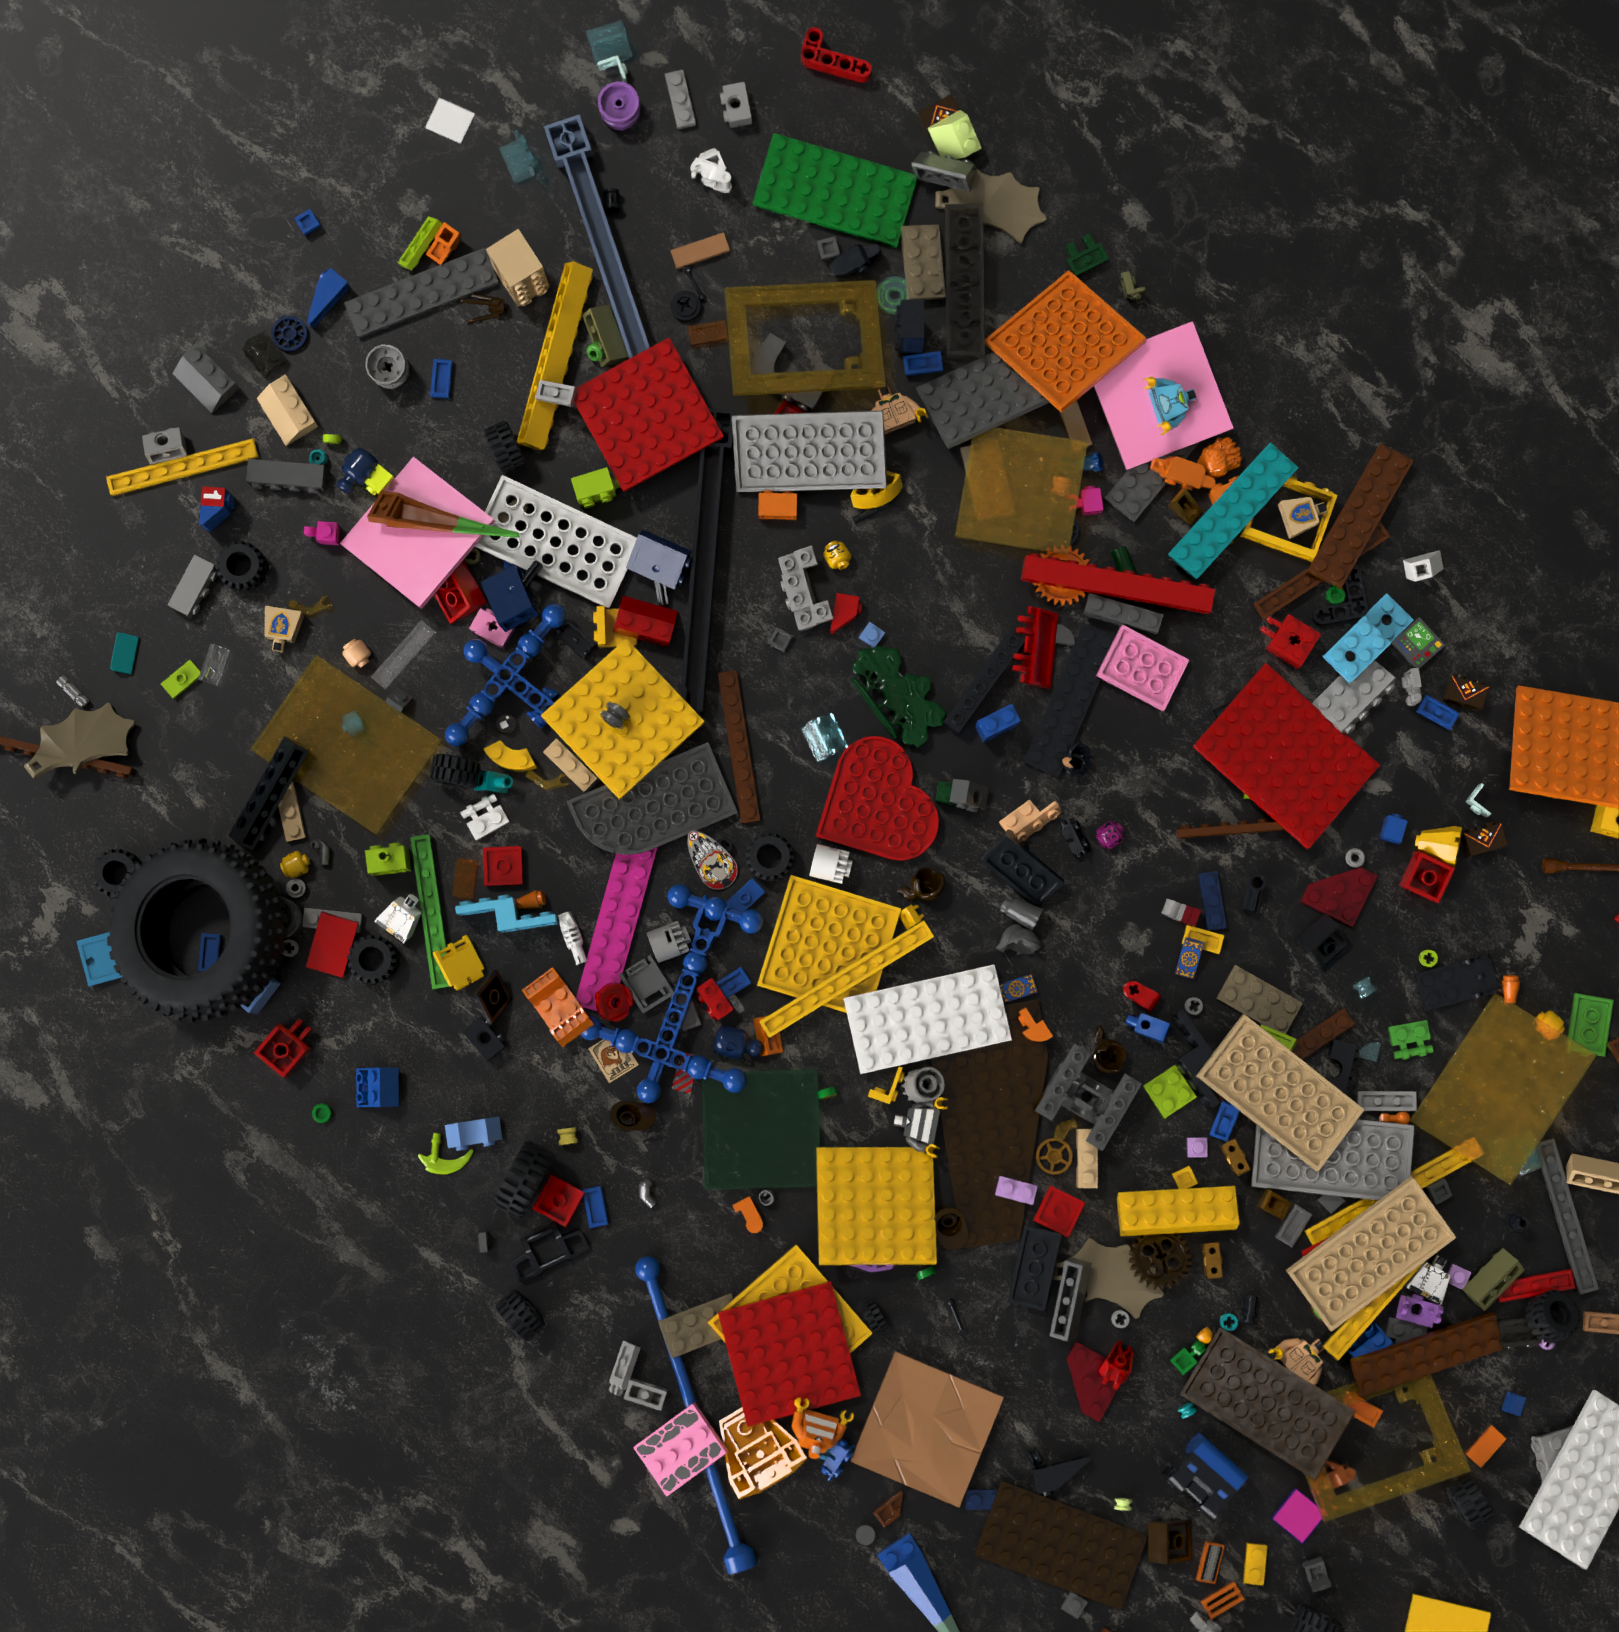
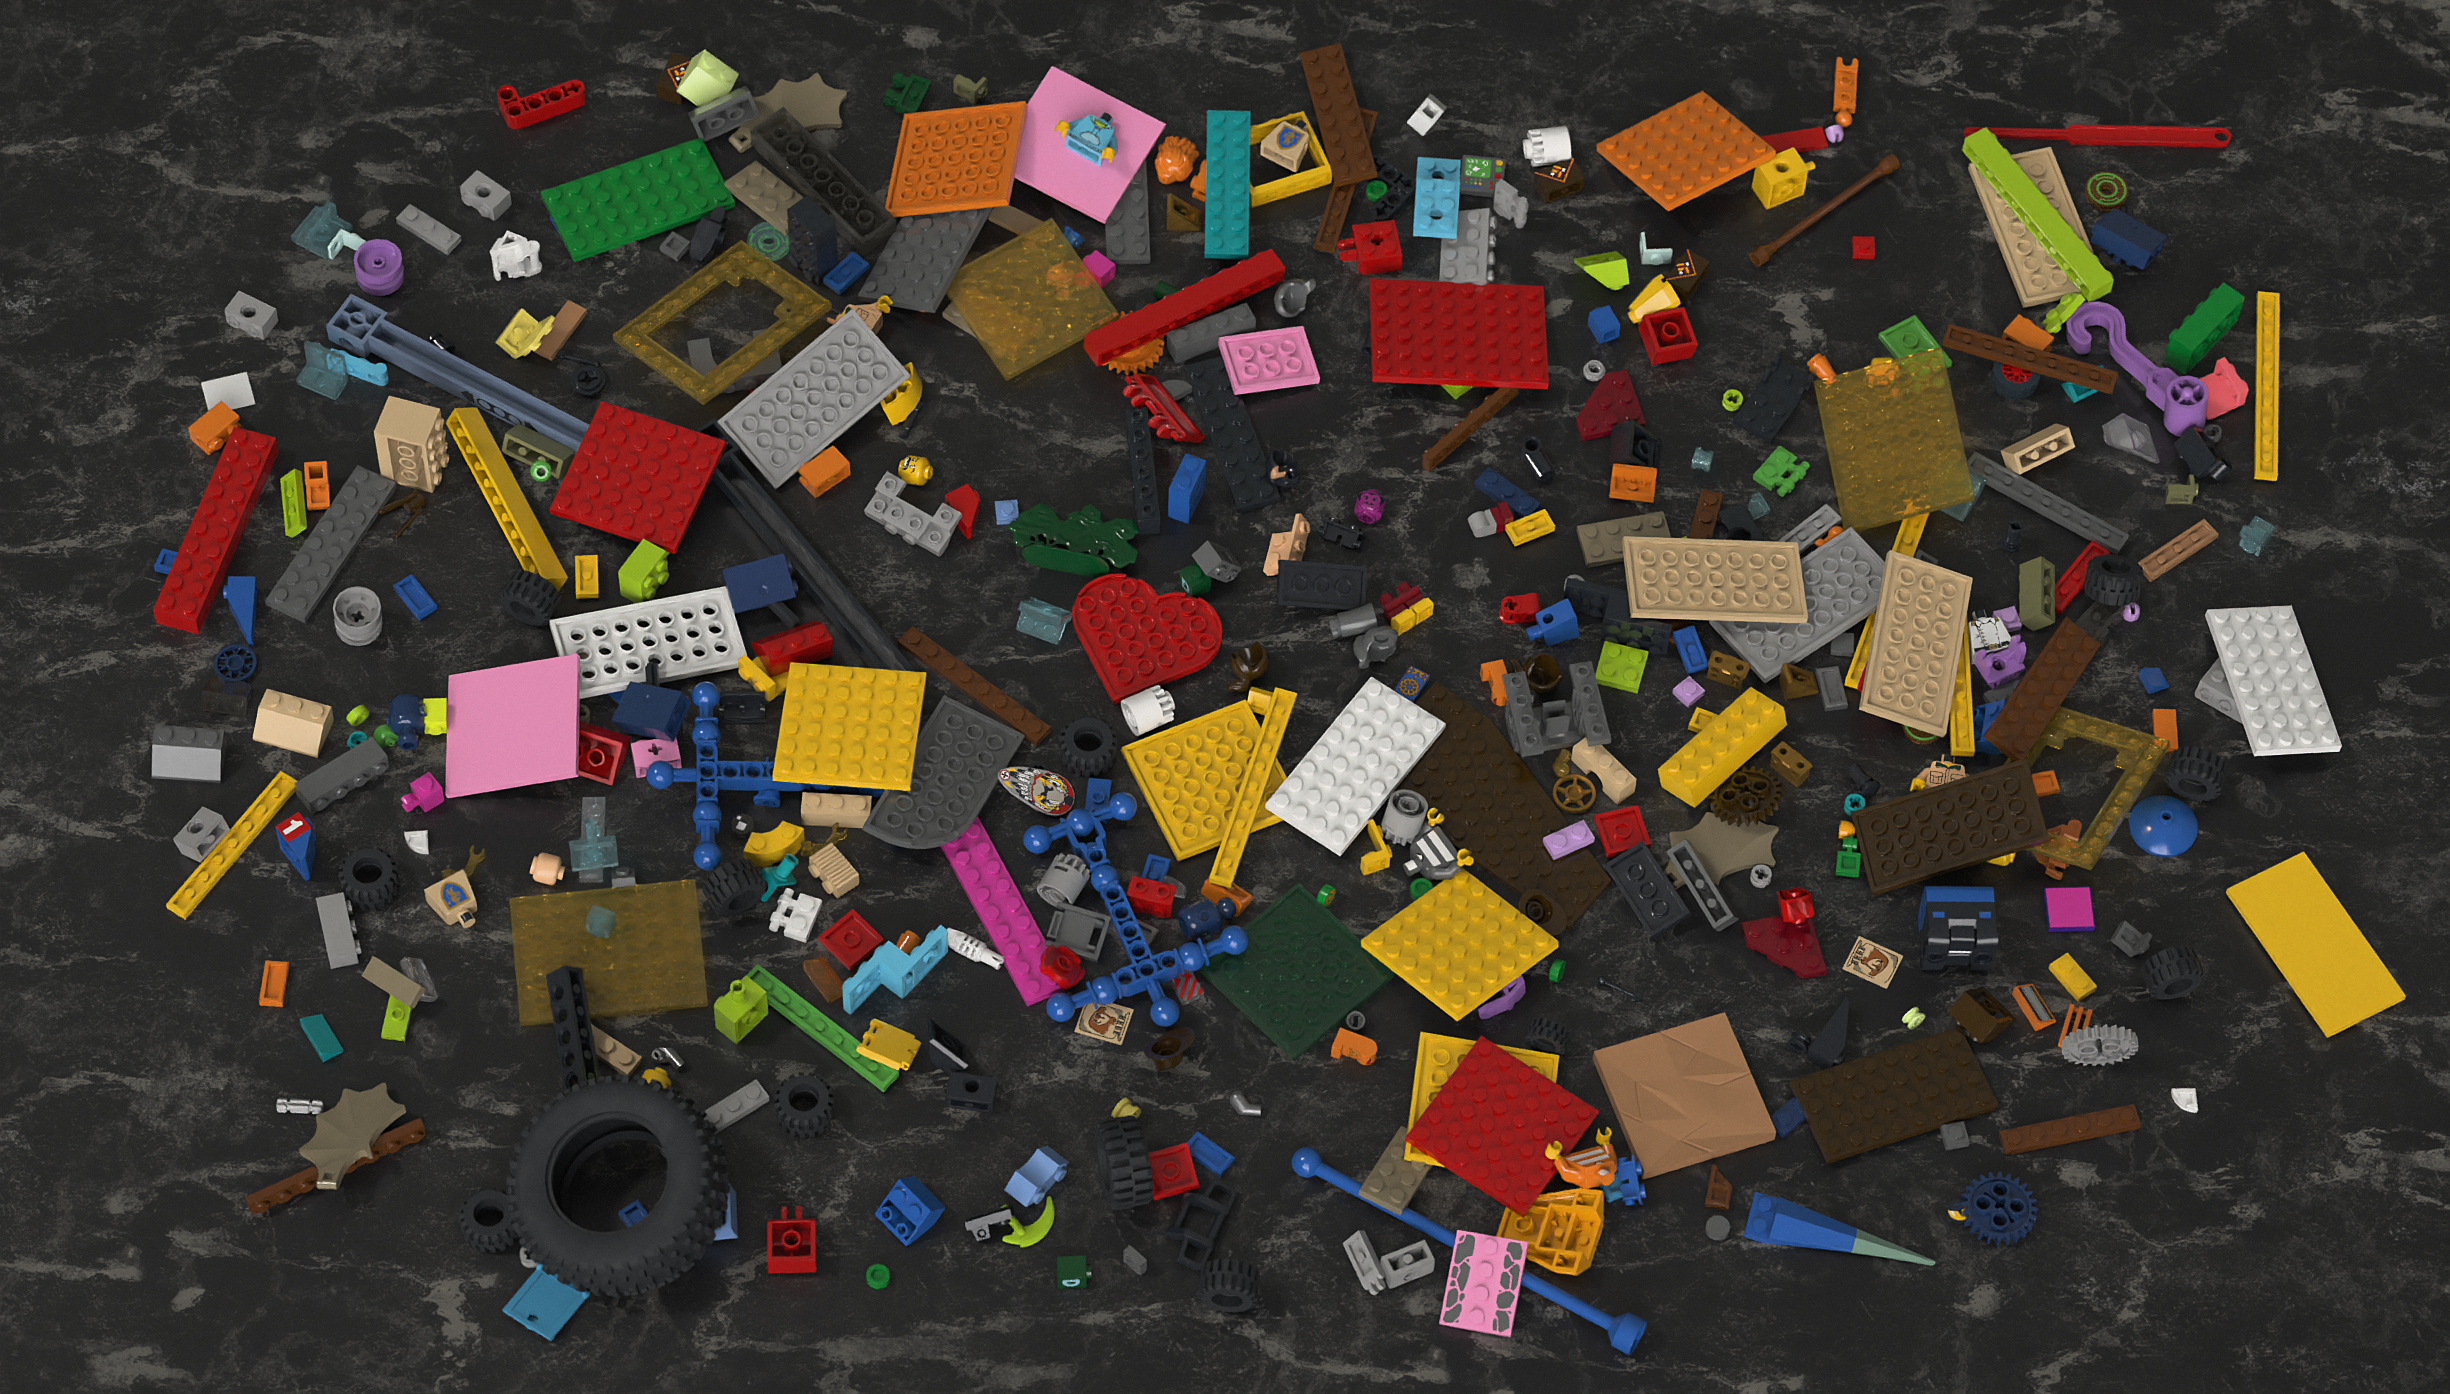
camera: 45 degrees left, 25 degrees down
(127, 590) = (274, 983): none -> orange tile
(195, 655) = (393, 982): none -> dark tan tile
(297, 562) = (417, 841): none -> white tile
(332, 944) = (753, 1123): red tile -> none
(336, 466) = (384, 736): none -> bright green piece
(354, 223) = (216, 530): none -> red brick
(392, 664) = (593, 851): none -> clear light blue bracket
(400, 918) = (797, 1048): white torso -> none
(404, 512) = (492, 711): dark orange plate -> none
(414, 1135) = (981, 1223): none -> hinge
(416, 143) = (214, 427): none -> orange brick
(439, 1216) = (1072, 1272): none -> dark green brick
(508, 62) = (244, 306): none -> light grey brick
(533, 807) = (833, 870): none -> tan brick
(546, 172) = (365, 370): none -> medium azure plate
(556, 393) = (539, 516): light grey plate -> none
(558, 1007) = (1014, 1011): orange plate -> none
(560, 456) = (586, 576): none -> yellow plate
(615, 715) = (843, 717): dark grey wheel -> none
(671, 237) = (524, 334): none -> light yellow bracket
(707, 333) = (628, 387): clear orange tile -> none
(780, 639) = (928, 575): dark grey tile -> none
(893, 1139) = (1420, 887): none -> green tile
(1036, 1031) = (1459, 700): orange brick -> none
(1057, 929) = (1407, 608): none -> hips
(1078, 1033) = (1493, 673): none -> orange leg
(1136, 1439) = (1872, 962): none -> tan sticker
(1183, 472) = (1154, 188): orange hinge -> none
(1187, 1410) = (1890, 899): teal bush -> none
(1189, 957) = (1532, 548): tile -> none
(1201, 632) = (1292, 296): none -> dark grey hair
(1300, 966) = (1633, 483): none -> orange bracket
(1405, 1516) = (2159, 835): none -> blue dish
(1433, 786) = (1607, 268): none -> lime slope
(1437, 712) = (1551, 212): blue plate -> none
(1480, 662) = (1547, 146): none -> white gear

